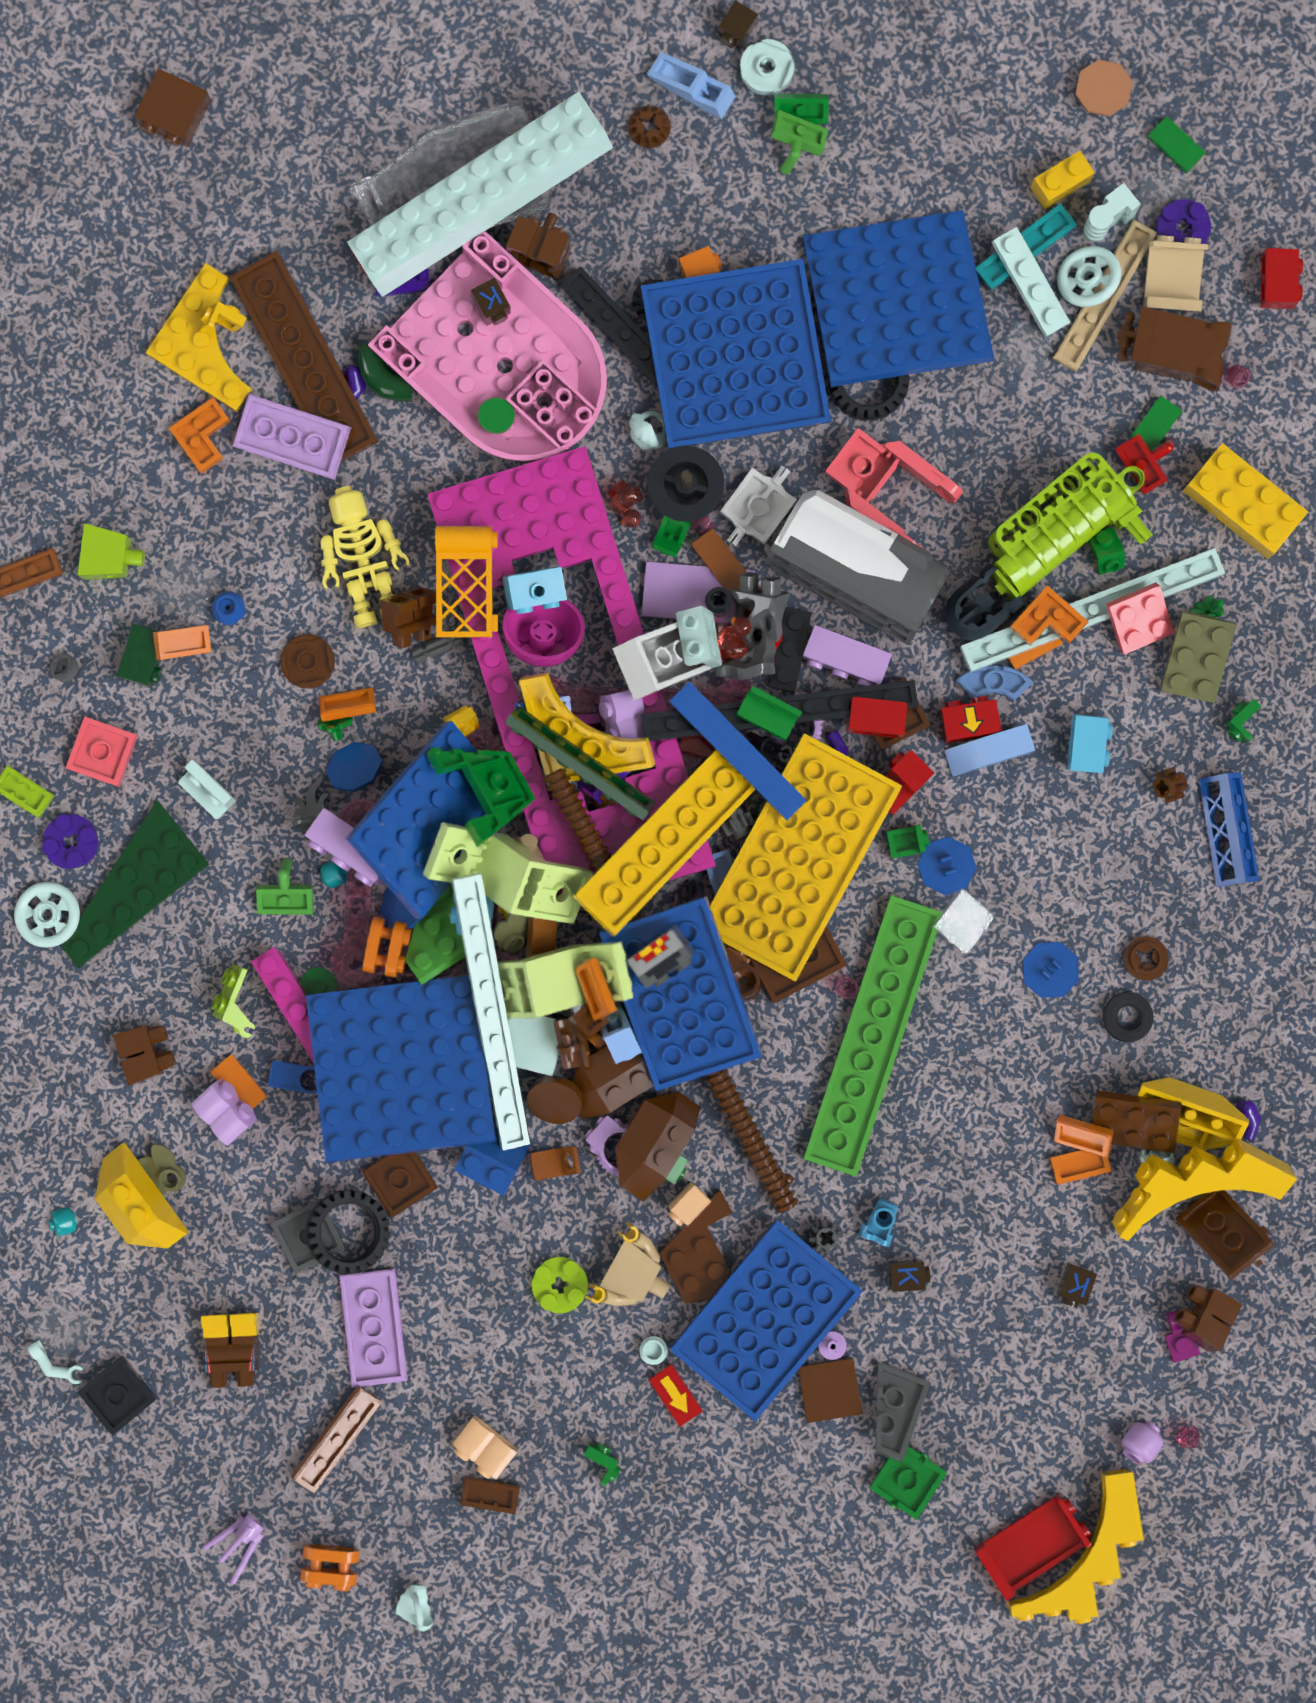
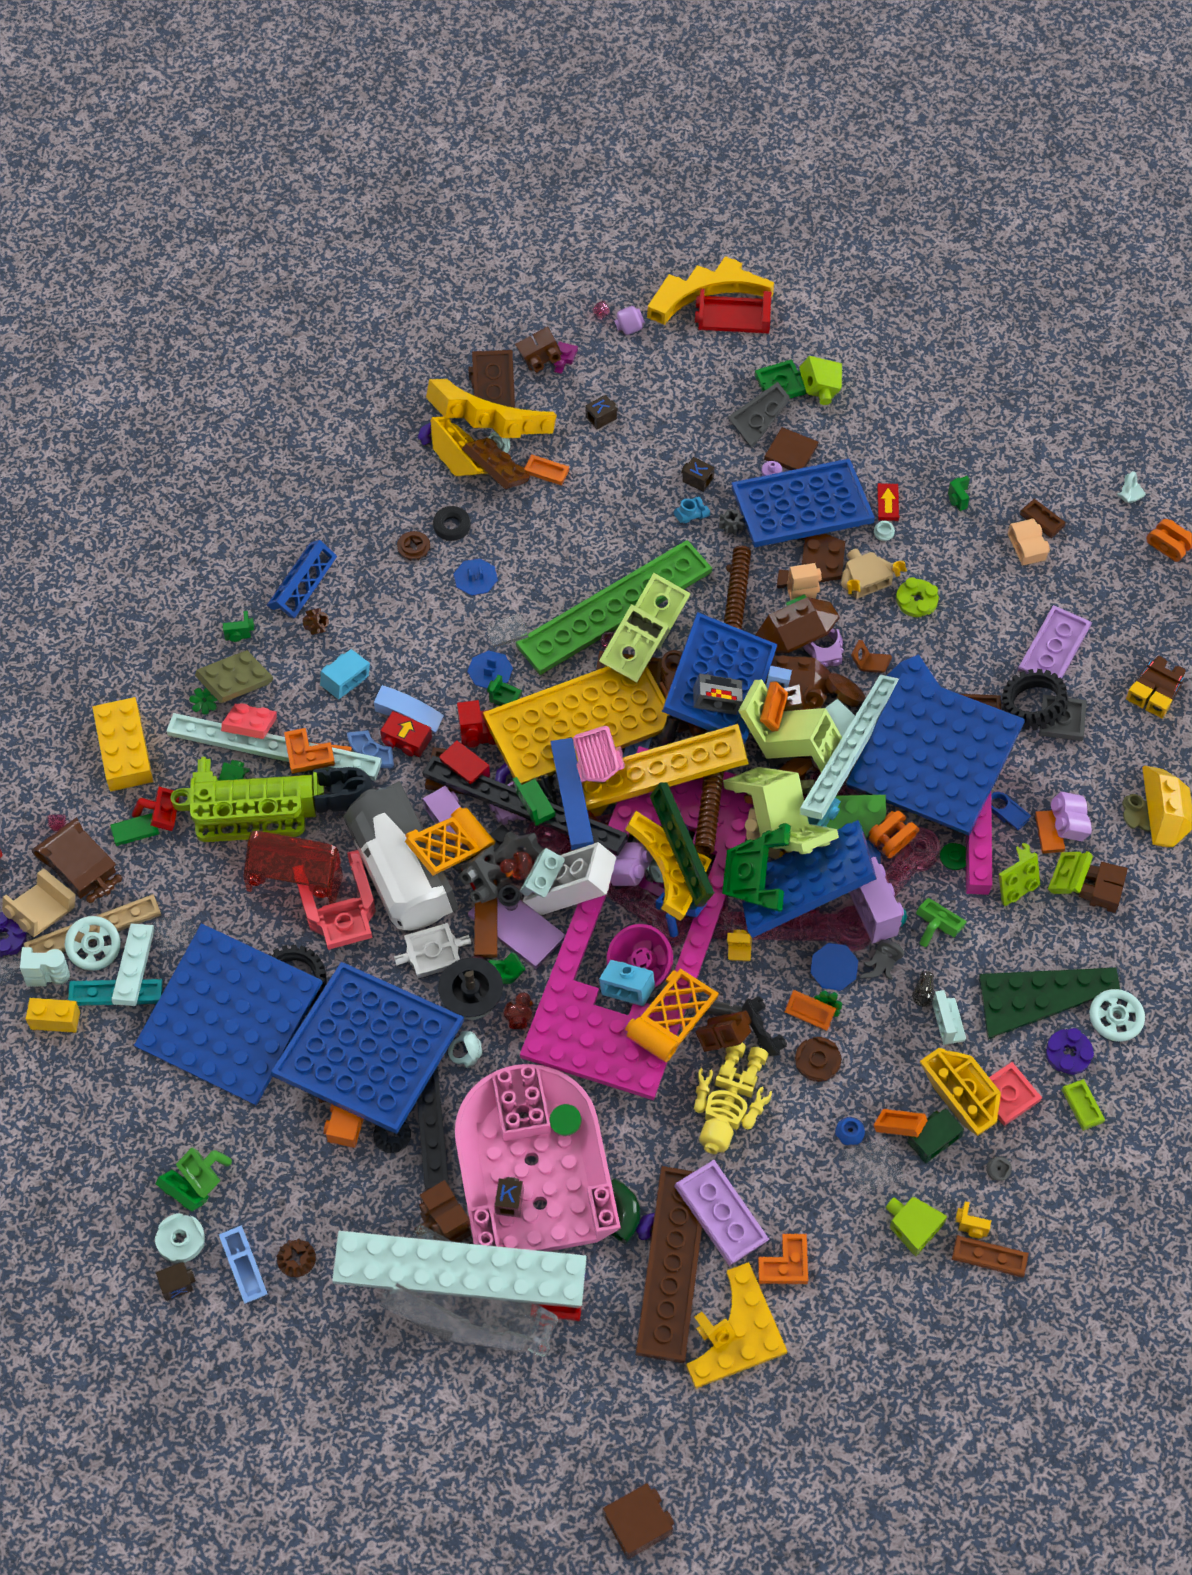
camera: 145 degrees left, 25 degrees down
(49, 589) = (974, 1226): none -> yellow bracket
(139, 717) = (963, 1088): none -> yellow wedge
(186, 1043) = (1070, 872): none -> lime plate
(251, 807) = (924, 990): none -> clear smoke cone
(336, 1439) = (1121, 601): tile -> none
(402, 662) = (771, 1045): none -> black piece
(735, 803) = (597, 755): none -> bright pink piece
(808, 640) = (468, 832): none -> light orange piece
(810, 1013) = (644, 627): none -> yellowish green bracket
(859, 1512) = (821, 378): none -> lime torso
(953, 475) = (294, 862): none -> clear red windscreen
(1083, 1136) = (533, 477): orange tile -> none

